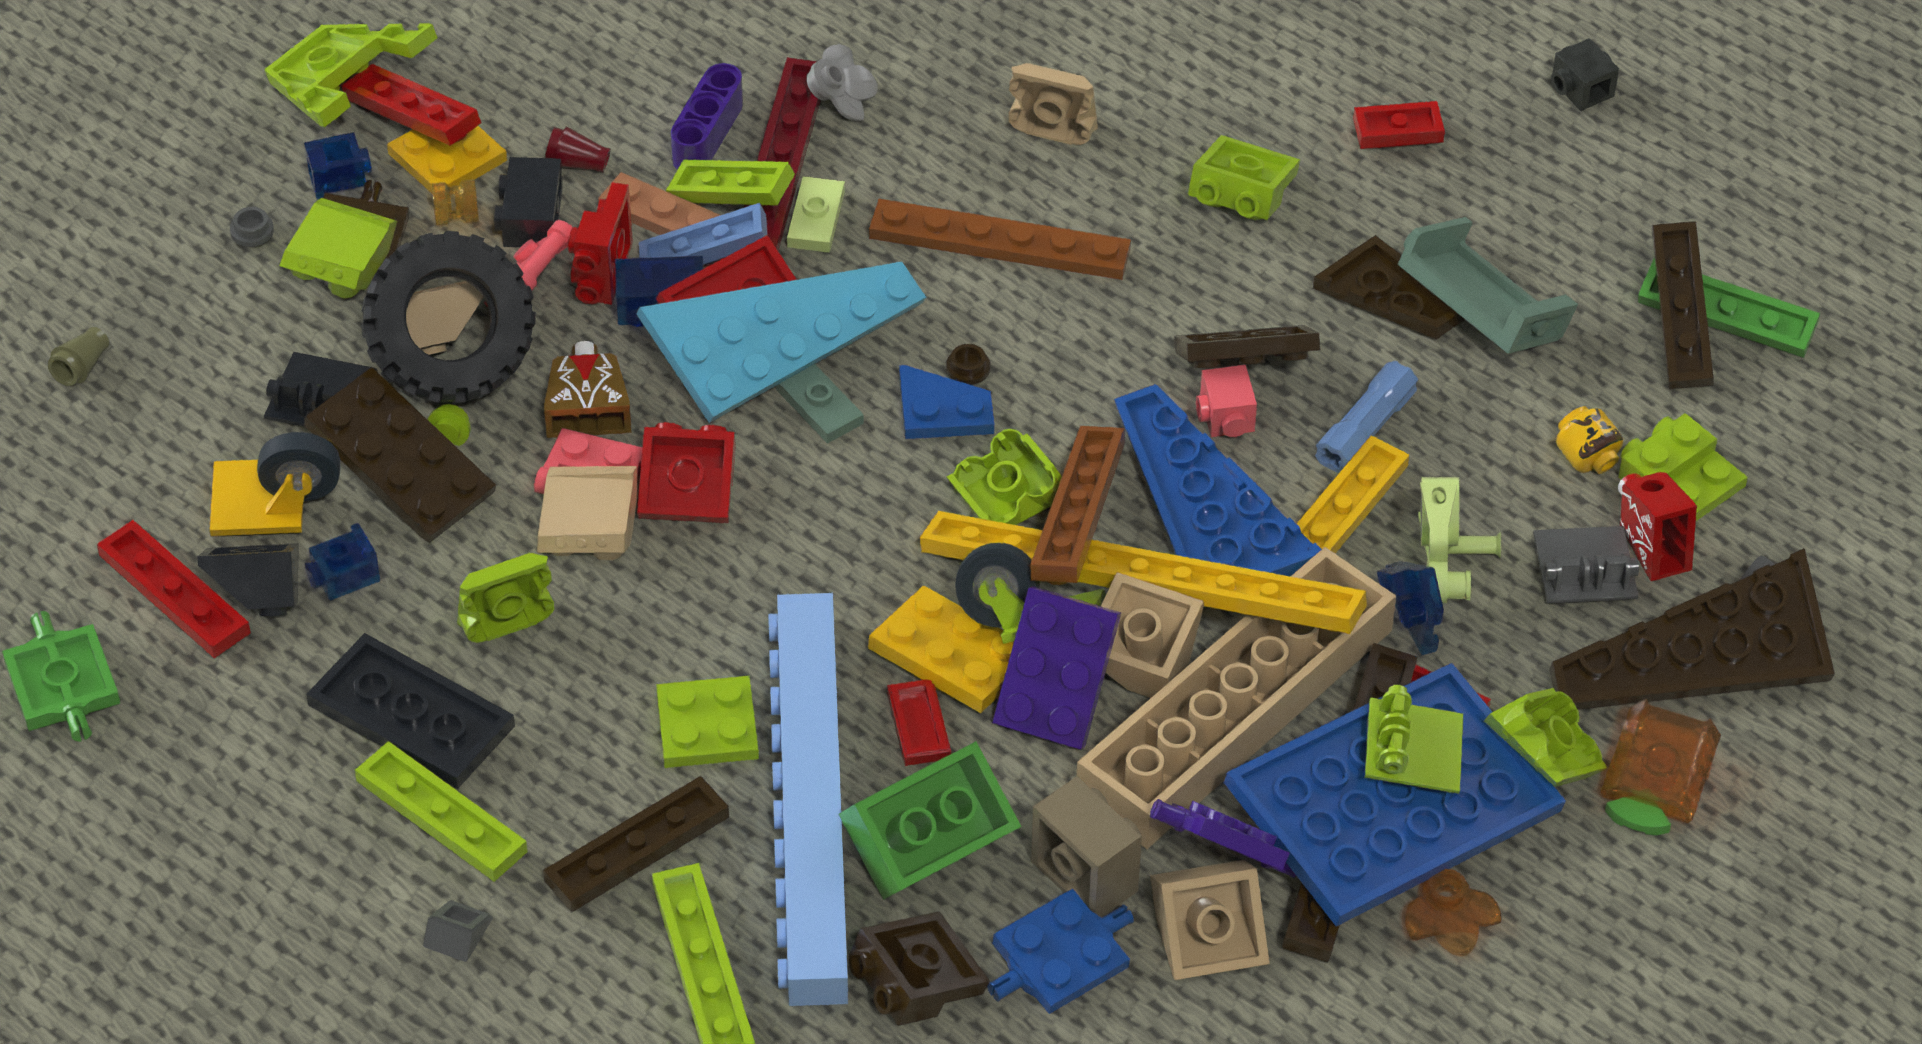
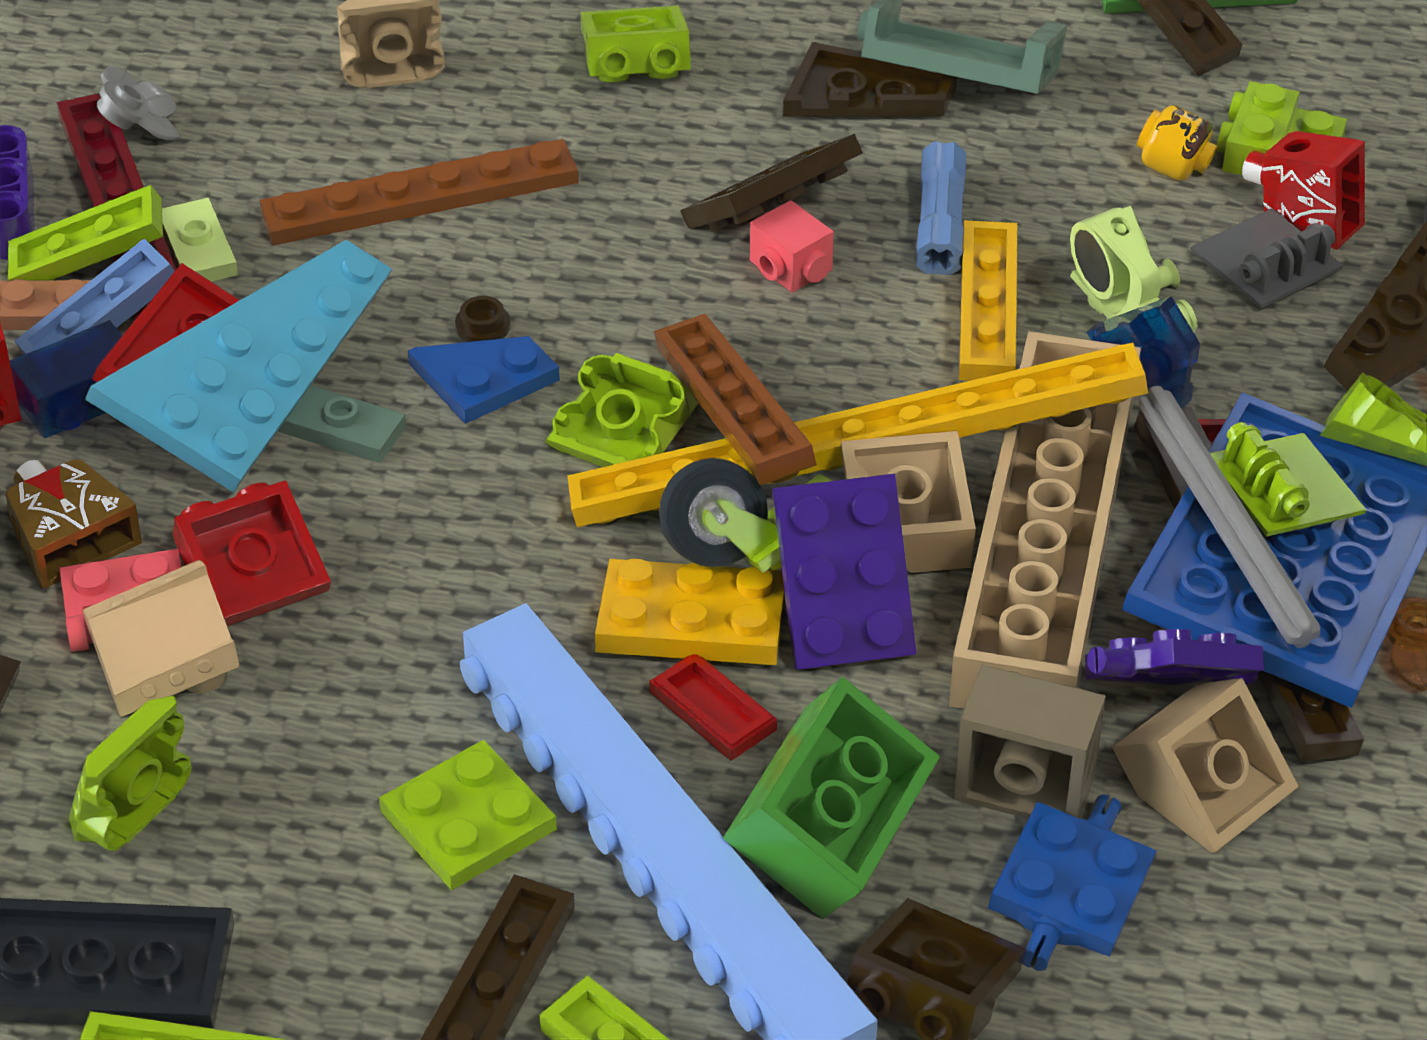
camera: 30 degrees left, 5 degrees down
(1204, 497) = (840, 347): blue wing -> none
(1346, 749) = (1230, 518): none -> light grey axle

